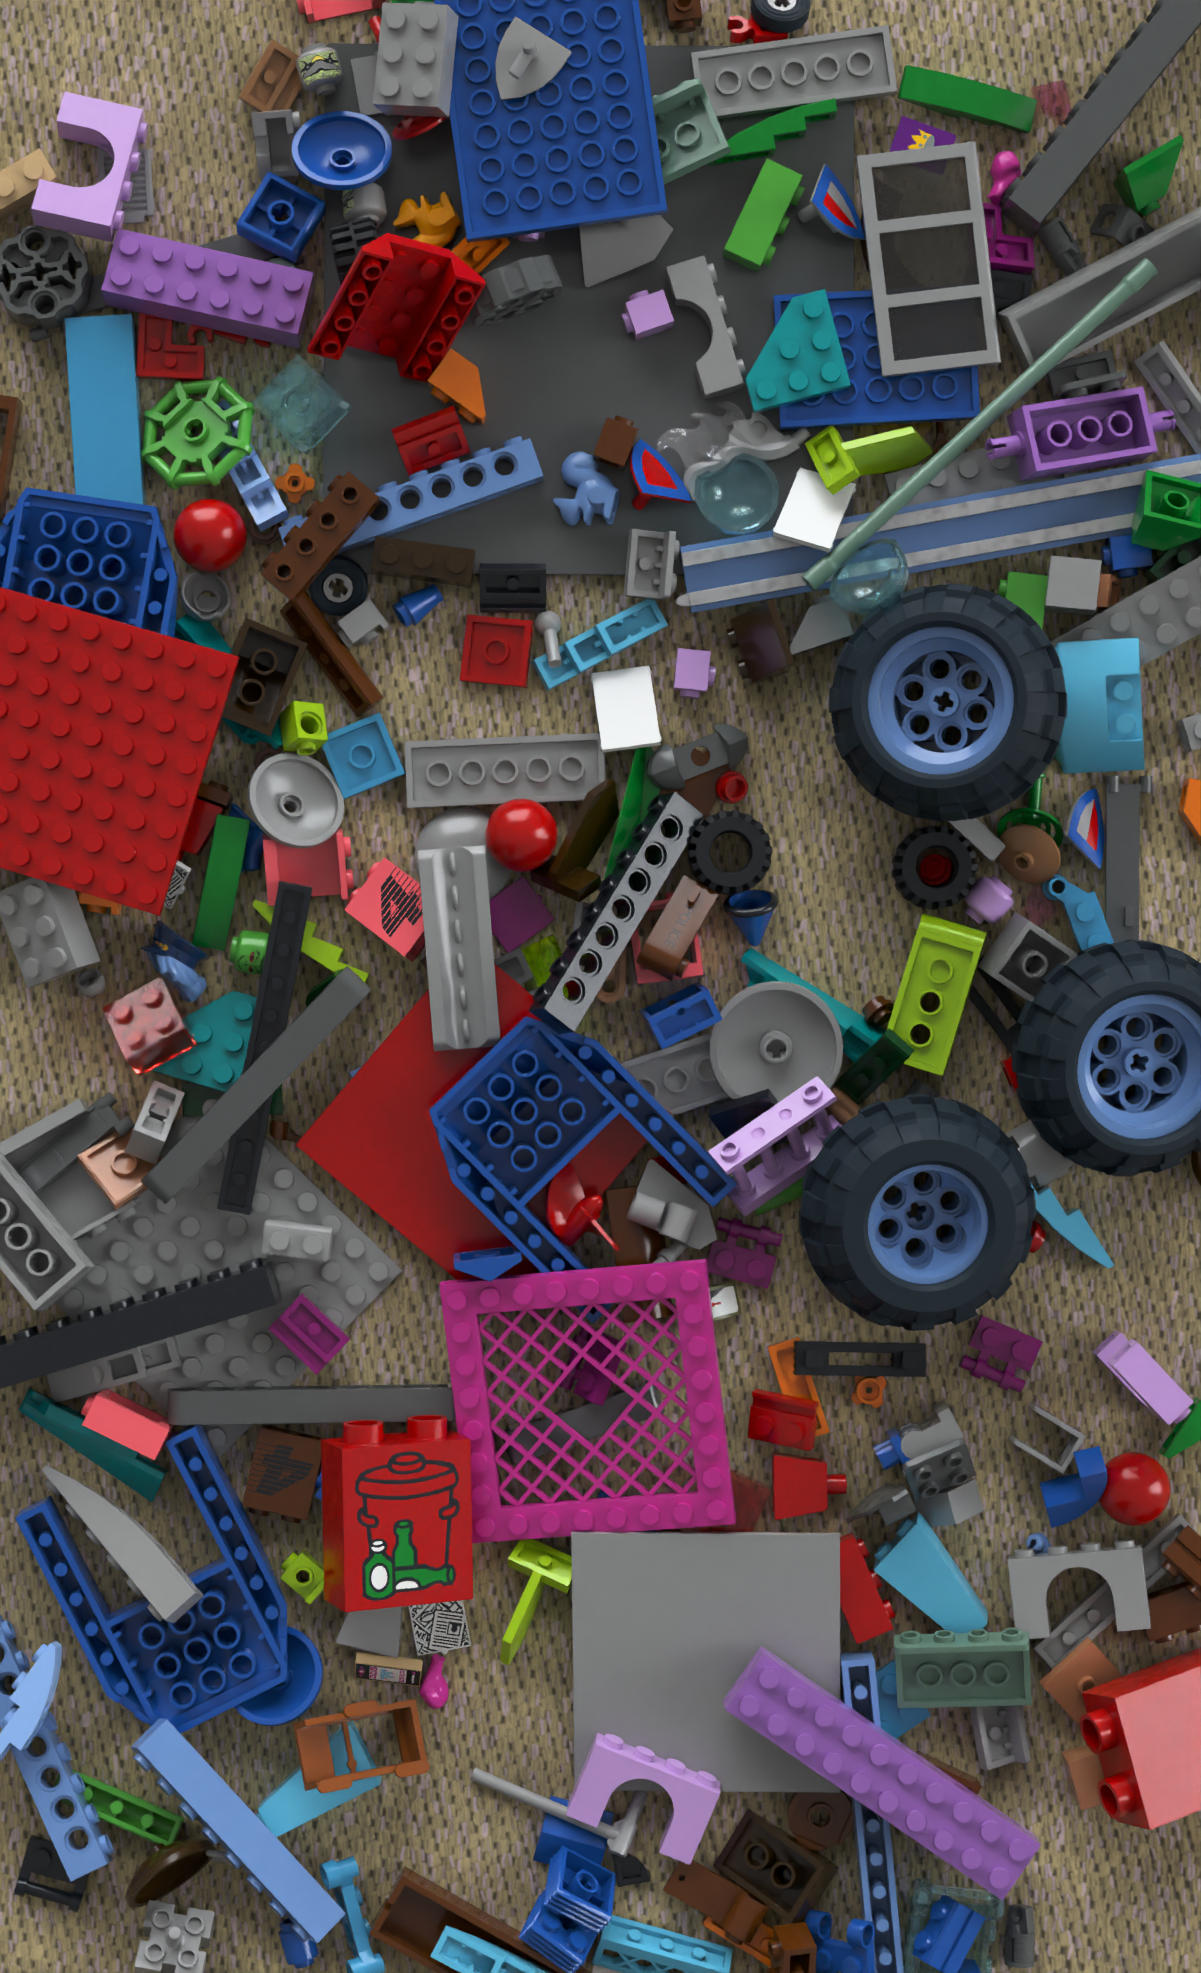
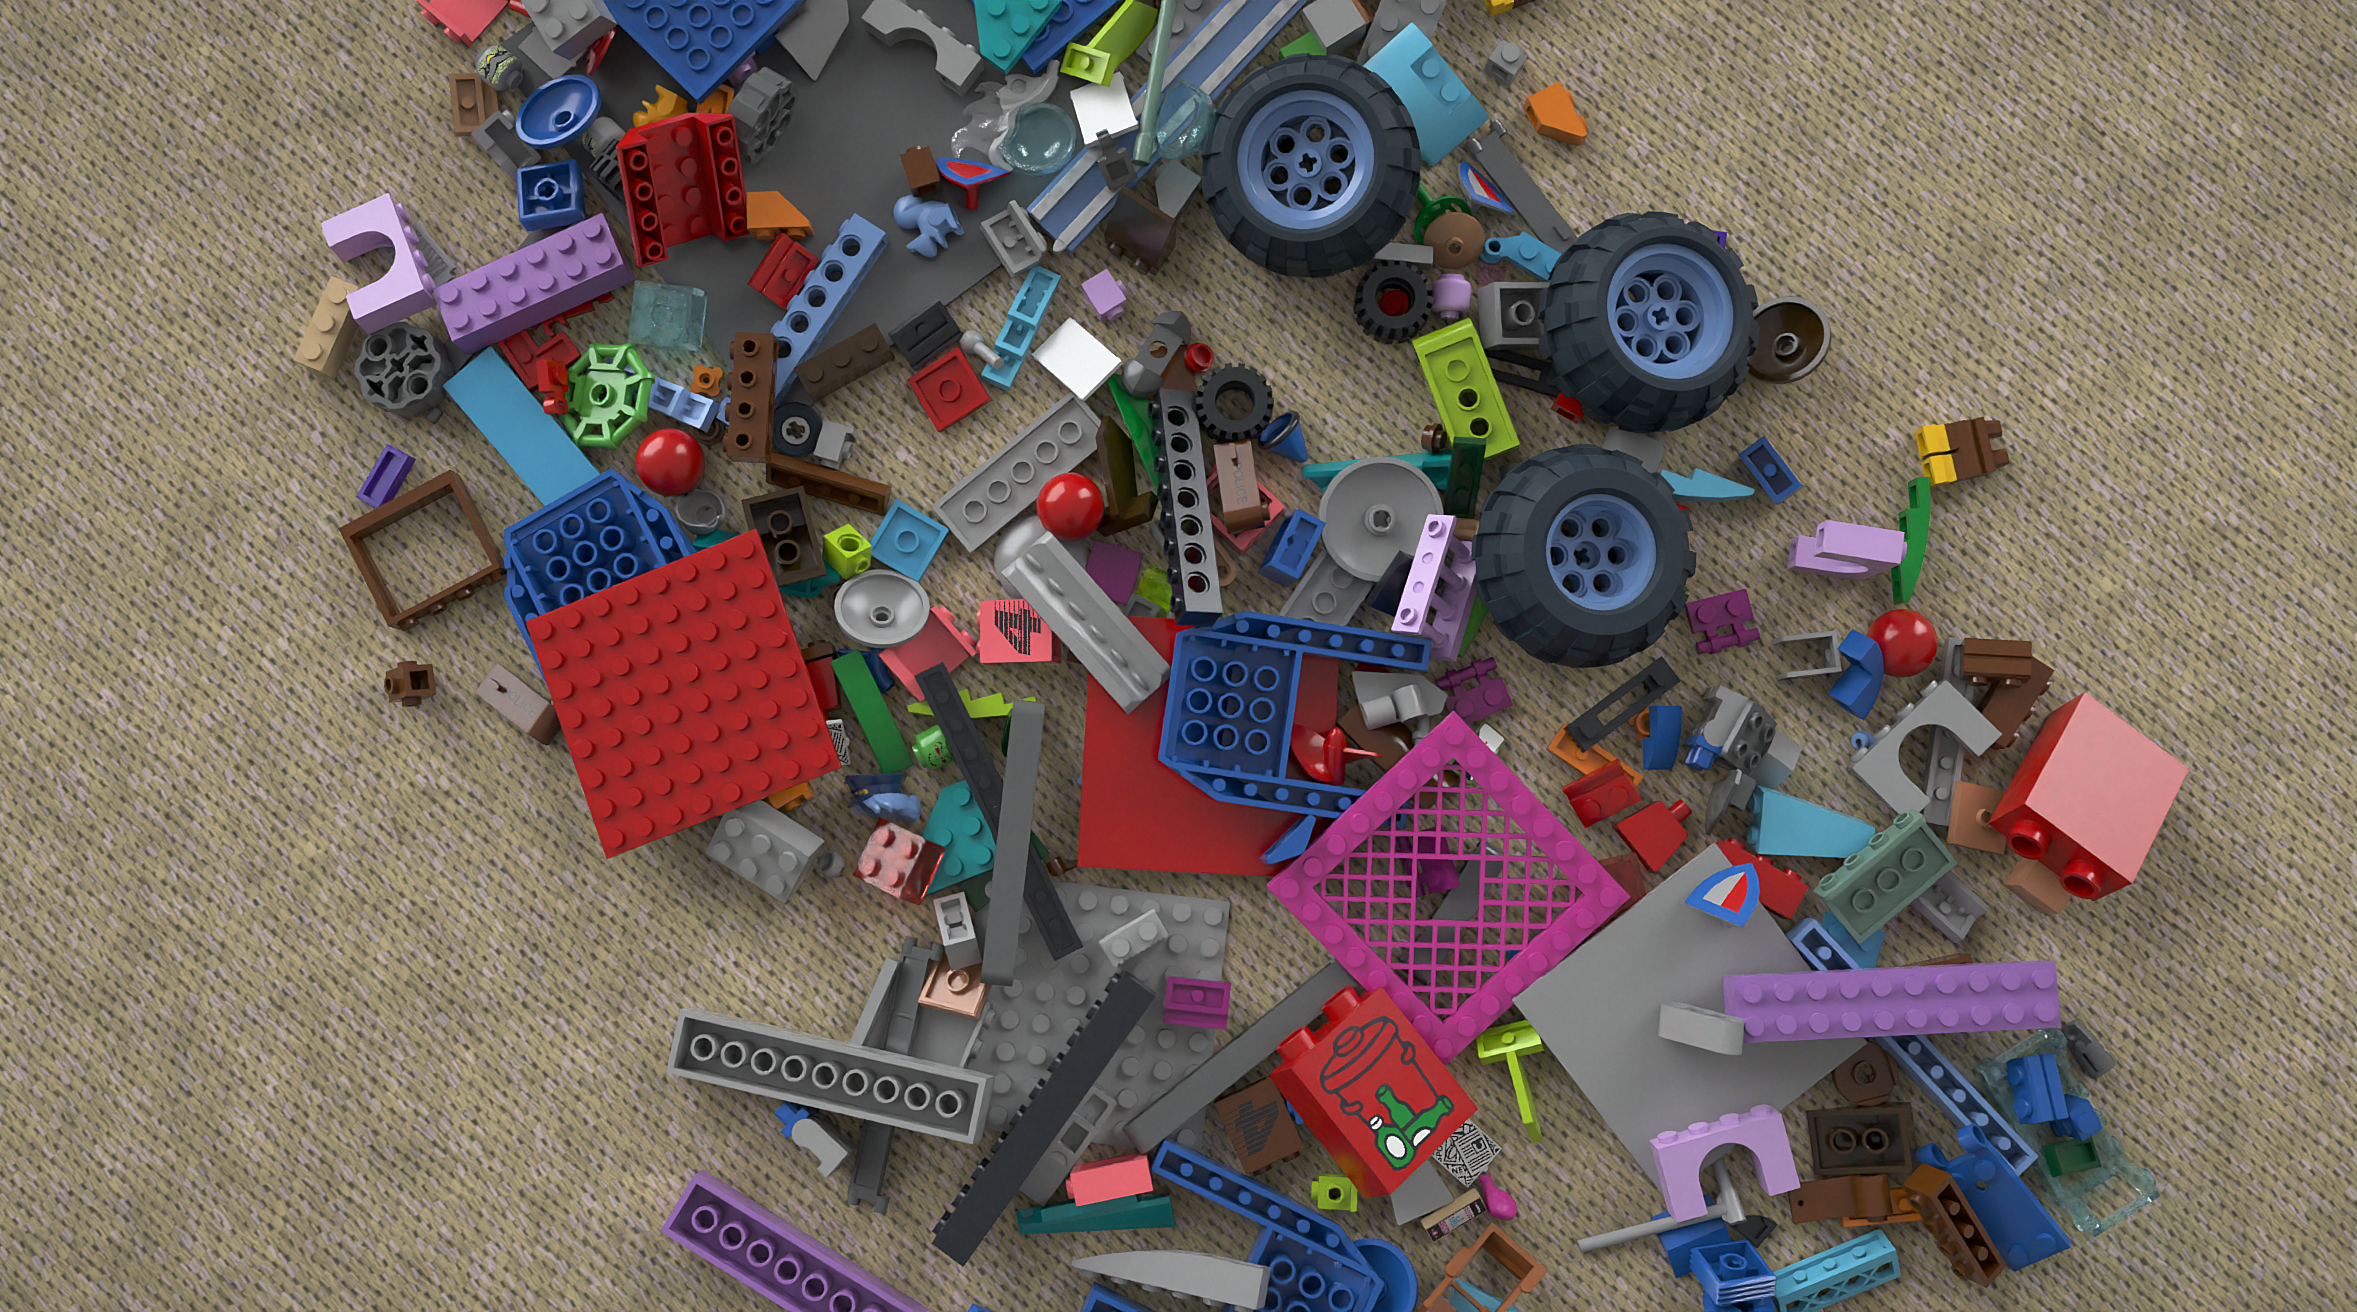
camera: 40 degrees left, 5 degrees down
(160, 388) = (553, 382): none -> red plate
(416, 605) = (864, 401): blue cone -> none
(647, 314) = (874, 64): lavender brick -> none
(706, 1674) = (1701, 1028): none -> light grey beam
(783, 568) = (1115, 164): none -> dark grey plate
(815, 1584) = (1728, 895): none -> shield
(870, 1416) = (1664, 739): none -> blue slope
(1141, 1259) = (1771, 470): none -> blue brick

